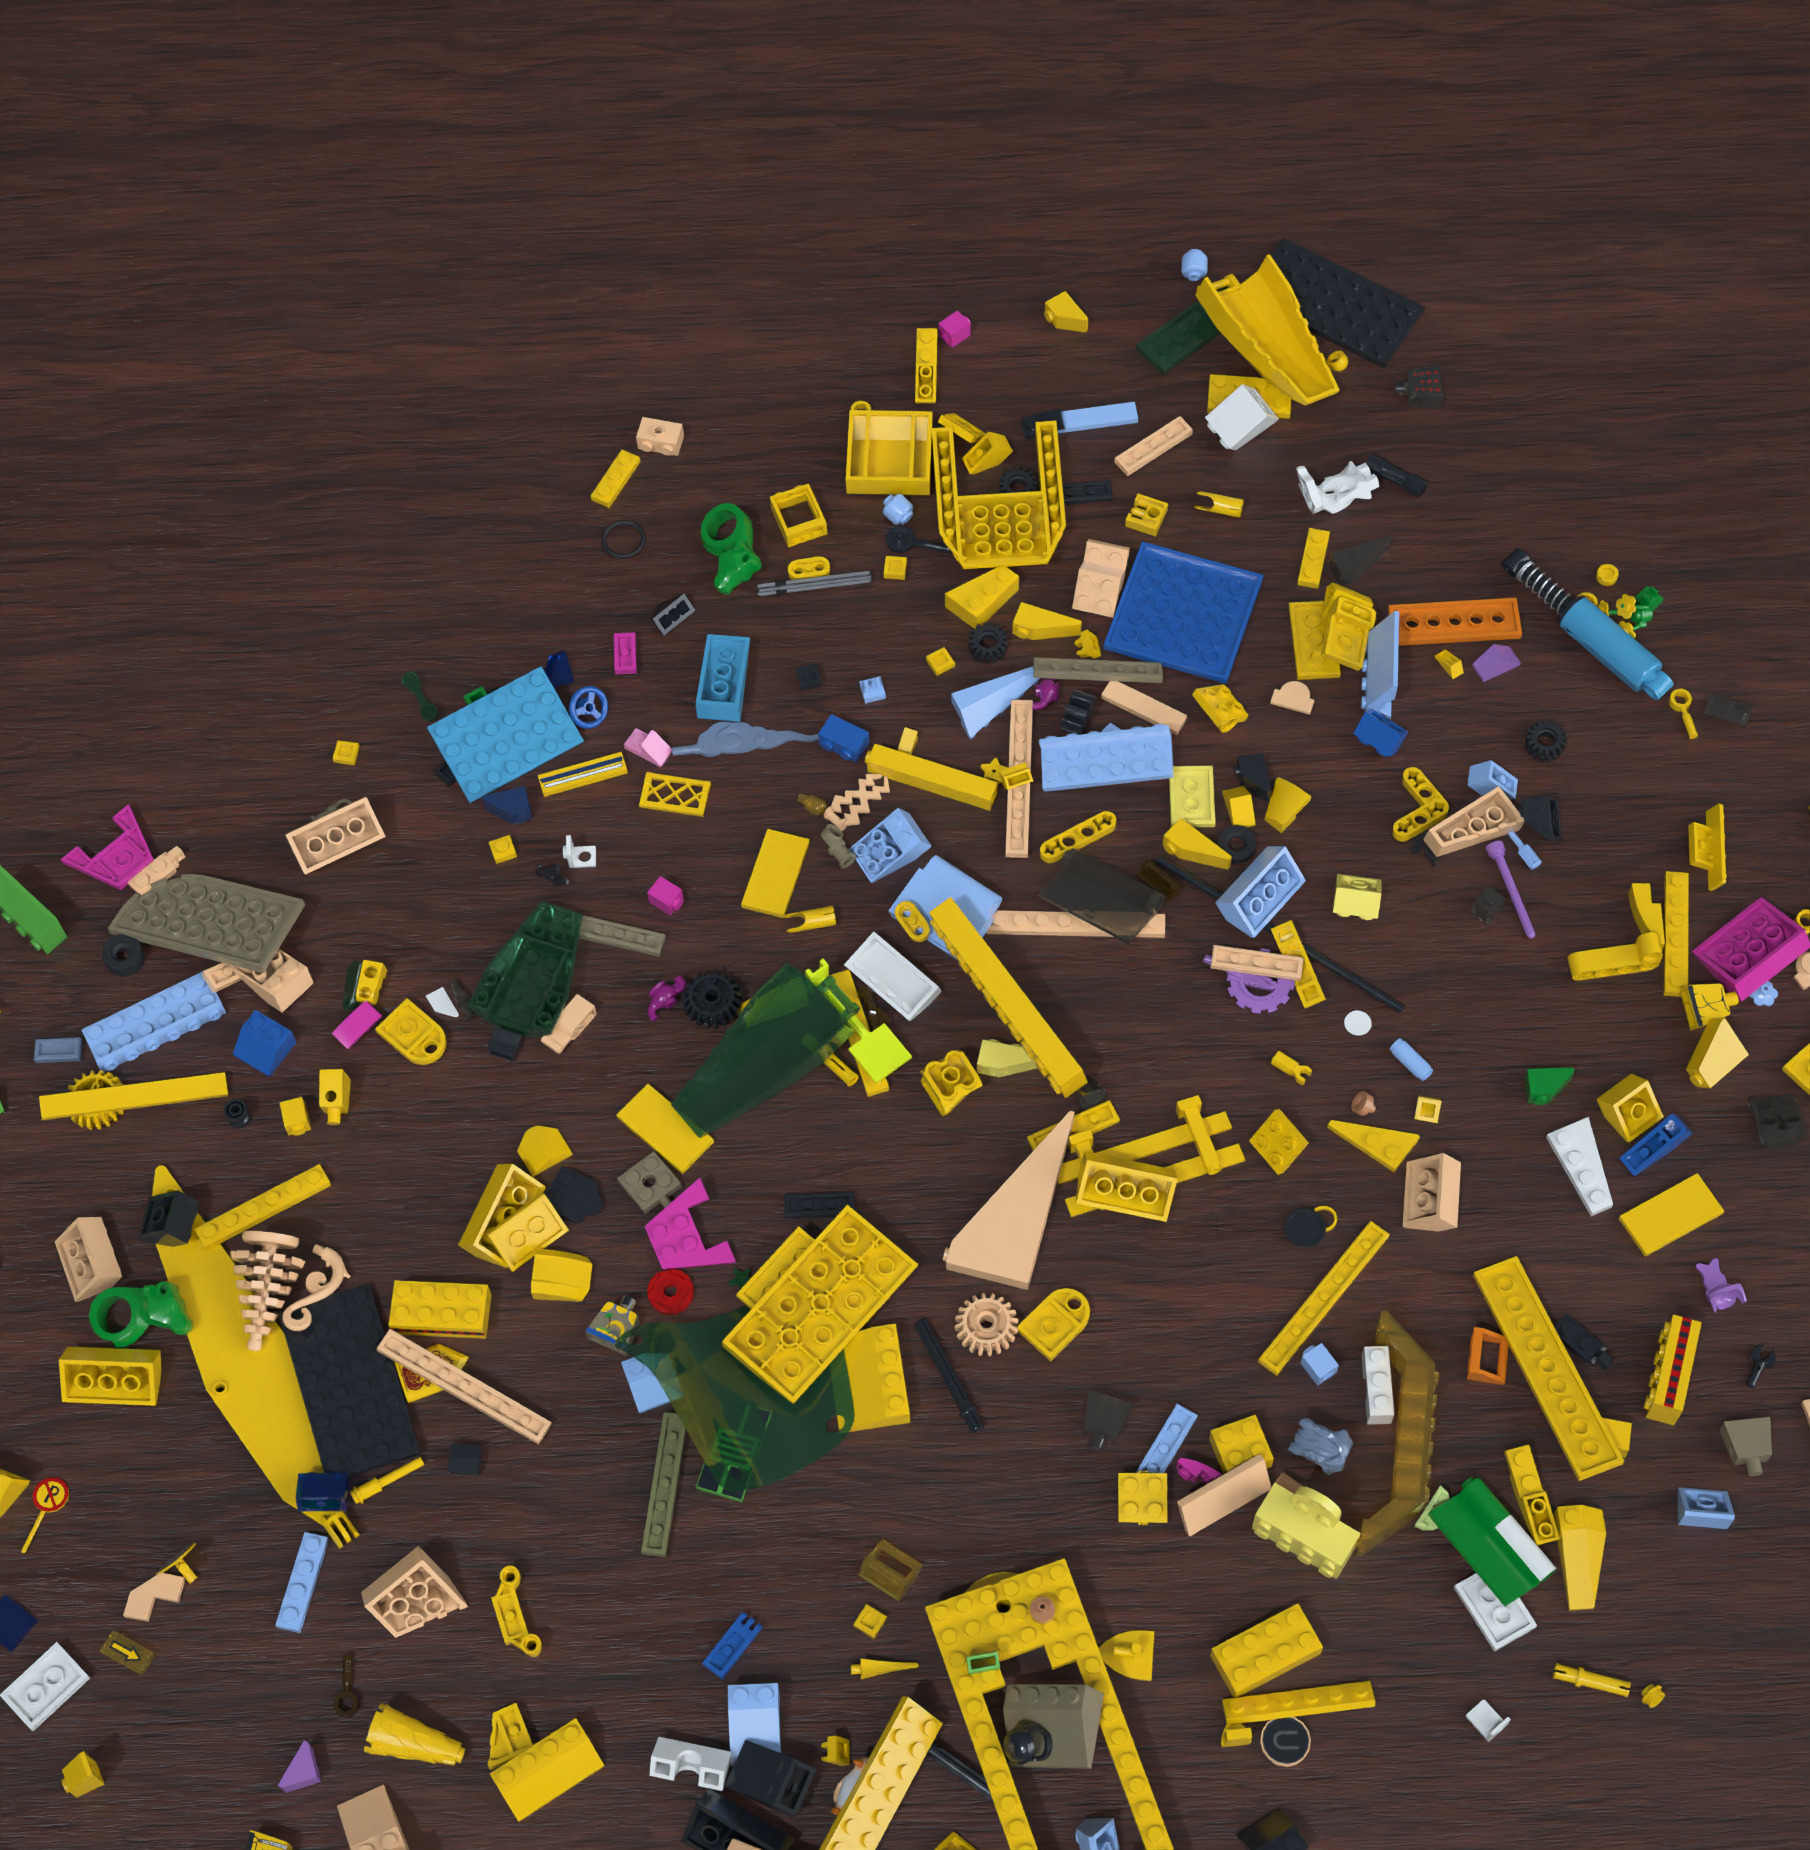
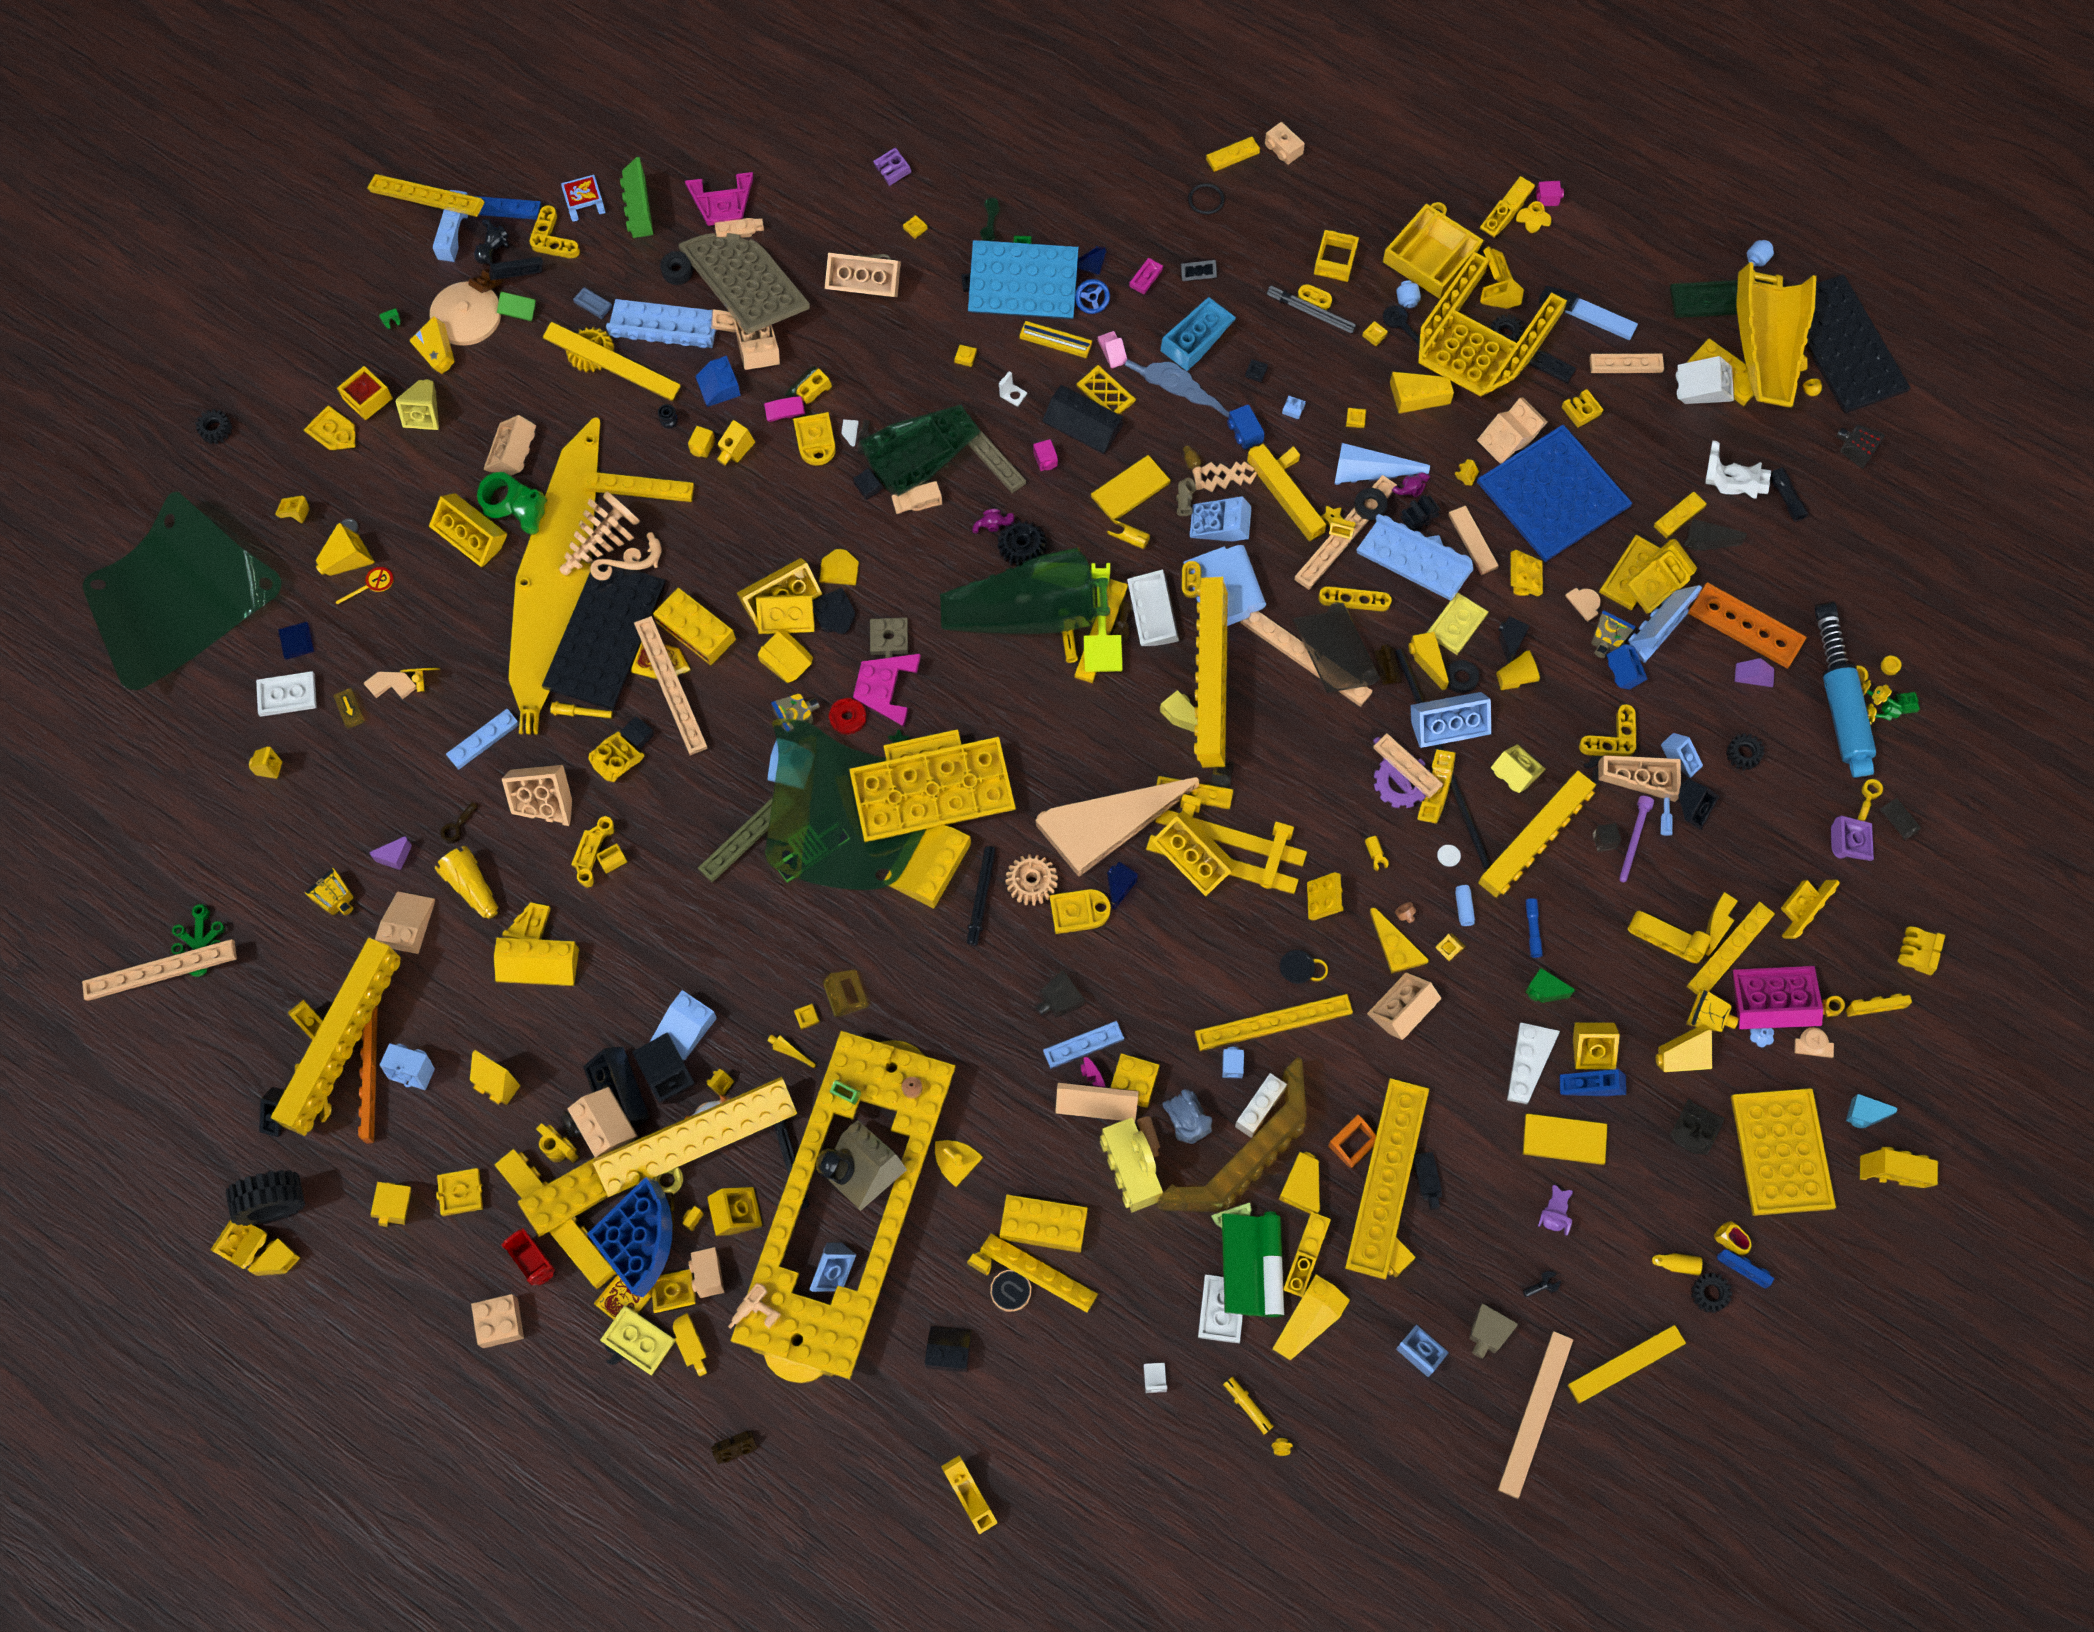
camera: 35 degrees right, 5 degrees up
(168, 1219) = (574, 454): black slope -> none
(284, 705) = (899, 170): none -> medium lavender brick
(322, 1491) = (532, 690): clear blue brick -> none
(462, 1502) = (614, 757): none -> yellow slope
(509, 805) = (992, 329): dark blue slope -> none
(542, 1606) = (611, 858): none -> yellow piece
(551, 875) = (982, 392): black piece -> none
(663, 1129) = (924, 607): yellow tile -> none
(674, 1756) = (616, 1010): white arch -> none
(675, 836) = (1083, 419): none -> black slope
(732, 1646) = (708, 968): blue hinge -> none
(736, 552) = (1271, 253): green animal -> none
(817, 1205) = (985, 725): black tile -> none
(949, 1080) = (1134, 702): yellow piece -> none
(959, 362) = (1534, 219): none -> yellow plate
(987, 653) = (1398, 435): black tyre -> none
(1020, 722) = (1376, 494): none -> black tyre
(1039, 623) = (1445, 436): yellow slope -> none
(1065, 313) = (1637, 231): yellow slope -> none
(1074, 1266) = (1120, 882): none -> clear blue slope
(1097, 670) = (1459, 493): dark tan tile -> none
(1142, 1497) = (1043, 1065): yellow plate -> none
(1223, 504) = (1643, 436): yellow piece -> none
(1239, 806) = (1484, 652): yellow slope -> none
(1340, 712) = (1610, 634): none -> torso
(1423, 946) = (1536, 834): none -> yellow brick
(1450, 663) = (1720, 652): yellow piece -> none
(1475, 1432) = (1303, 1184): none -> yellow slope
(1492, 1040) = (1535, 940): none -> blue piece
(1672, 1369) = (1474, 1243): yellow brick -> none
(1700, 757) = (1852, 838): none -> medium lavender slope

